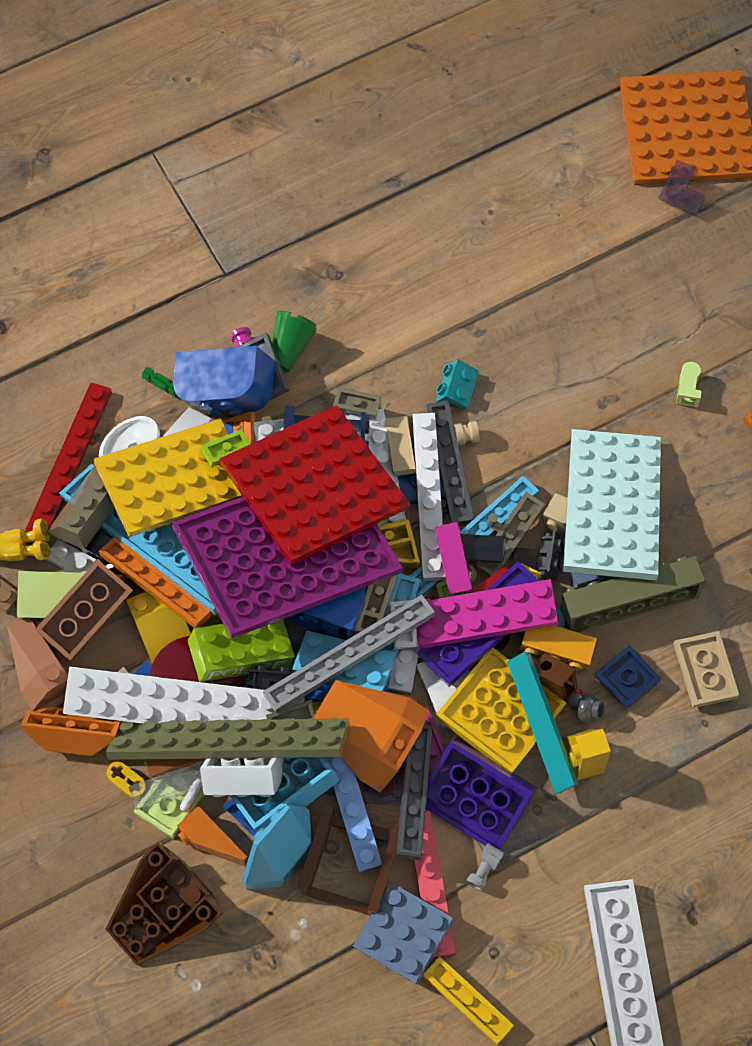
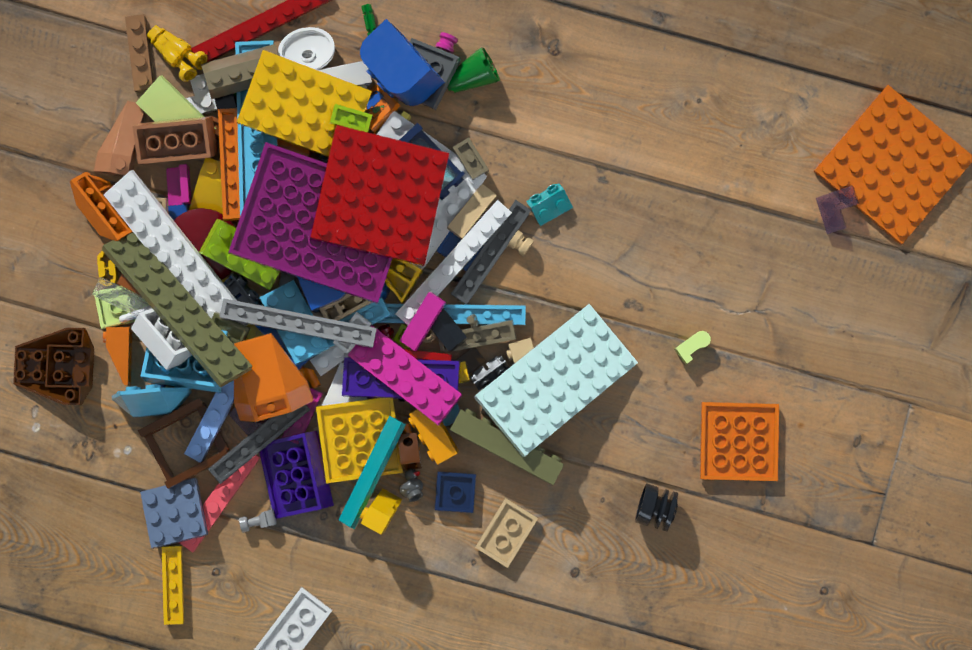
camera: 45 degrees right, 20 degrees up
(123, 650) = (179, 185): none -> dark pink panel

